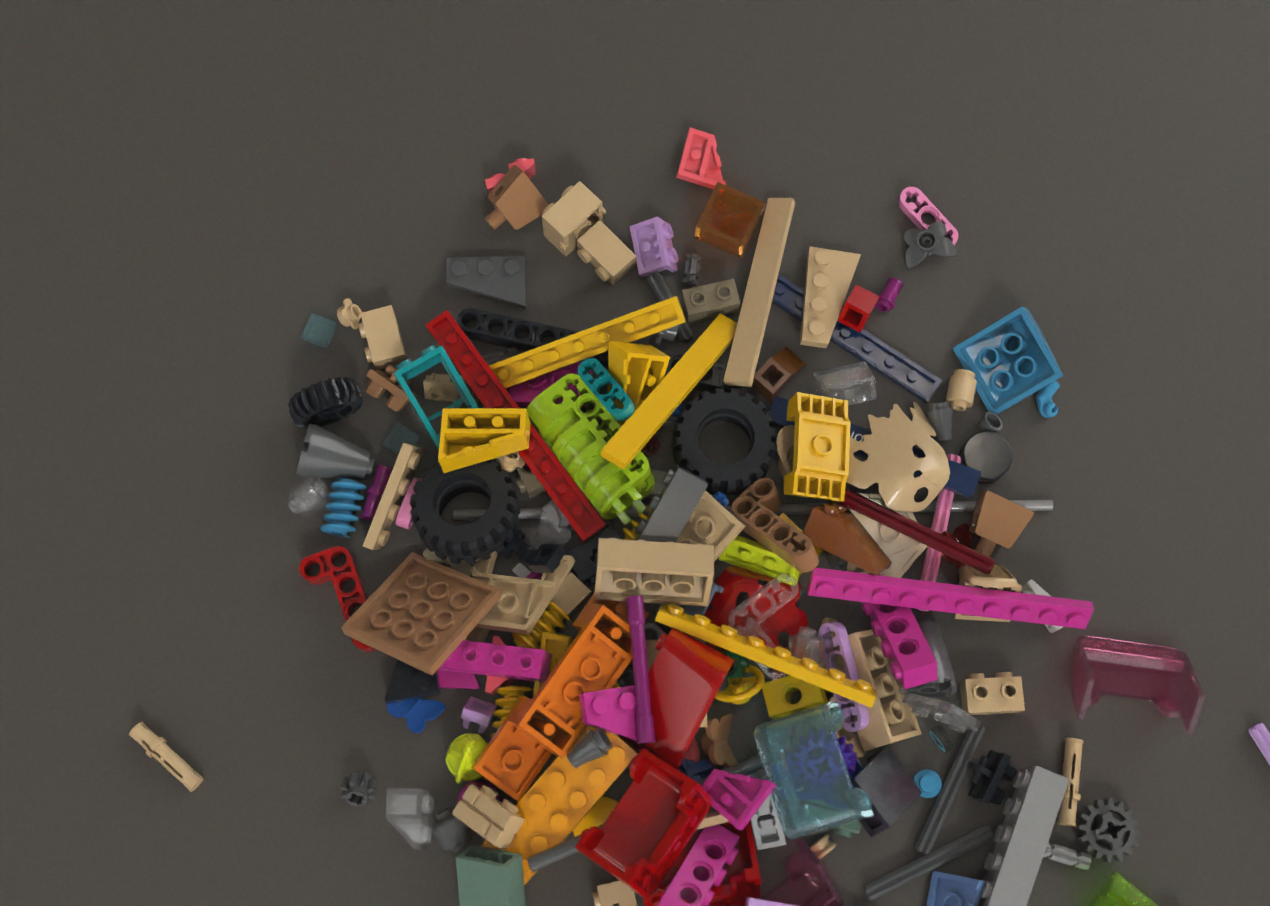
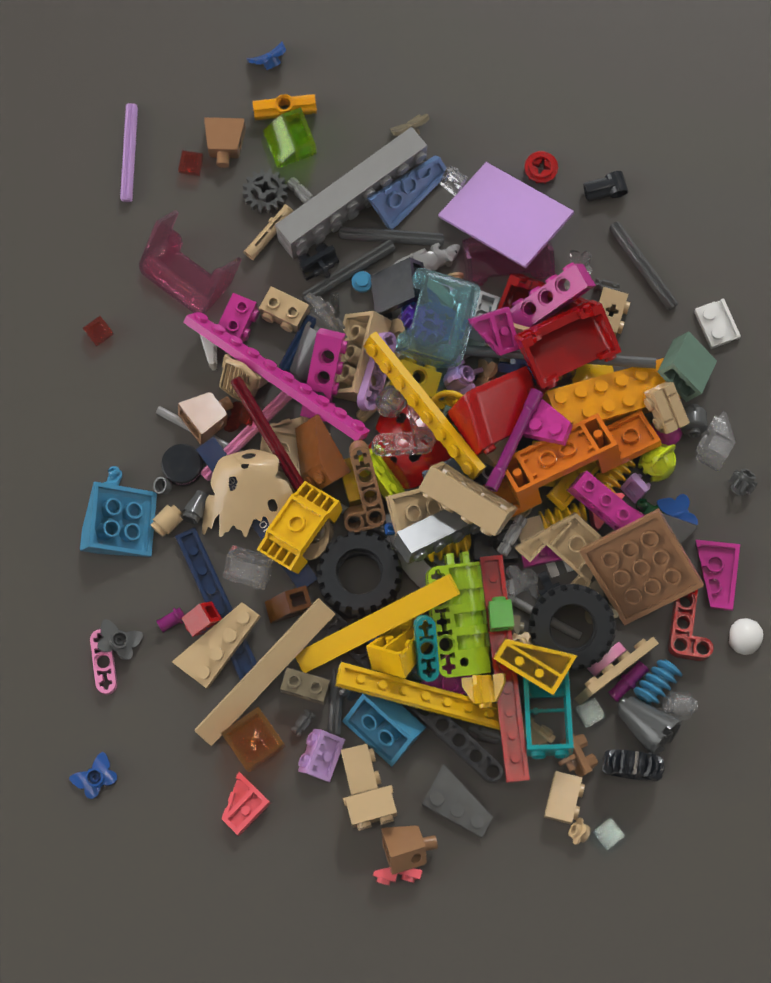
camera: 145 degrees left, 0 degrees up
(272, 614) = (745, 636): none -> white hair
(335, 669) = (719, 569): none -> dark pink wing
(453, 697) = (645, 507): none -> dark green arm
(521, 387) = (484, 688): none -> yellow brick
(544, 559) = (537, 556): black plate -> none
(547, 469) = (500, 614): none -> bright green brick
(584, 571) = (512, 535): none -> light grey axle
(590, 748) = (576, 407): dark grey cone -> none
(597, 302) = (384, 726): none -> dark azure slope
(741, 725) = (461, 378): none -> lavender brick
(860, 112) = (96, 777): none -> blue animal
(864, 854) = (435, 257): none -> light grey animal
(950, 638) = (289, 355): none -> dark blue axle
(1035, 653) = (239, 316): none -> dark pink brick
(1175, 553) = (98, 331): none -> clear red plate
(1199, 869) = (224, 138): none -> medium nougat torso
(1215, 815) = (190, 163): none -> clear red plate

